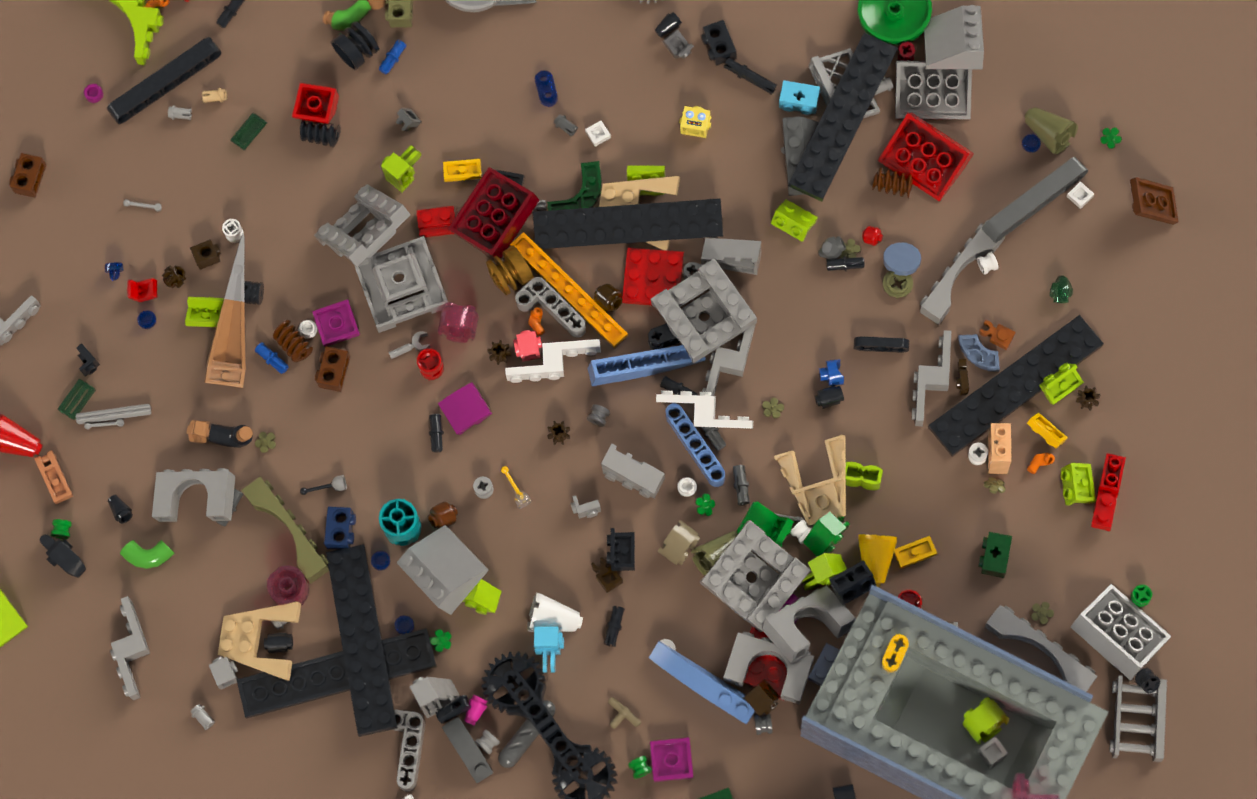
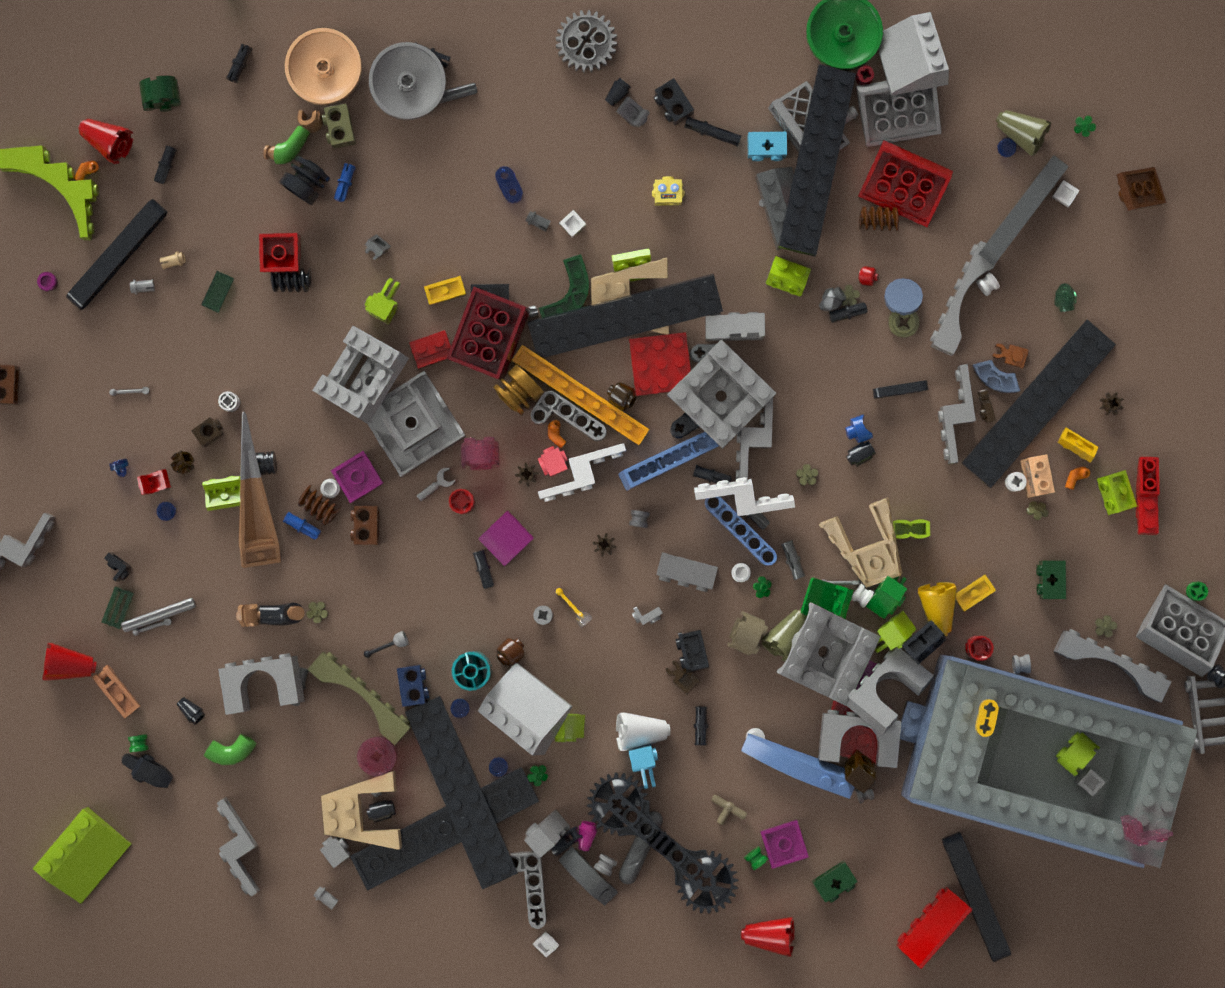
camera: 20 degrees left, 15 degrees up
(1061, 383) = (1083, 394): lime bracket -> none

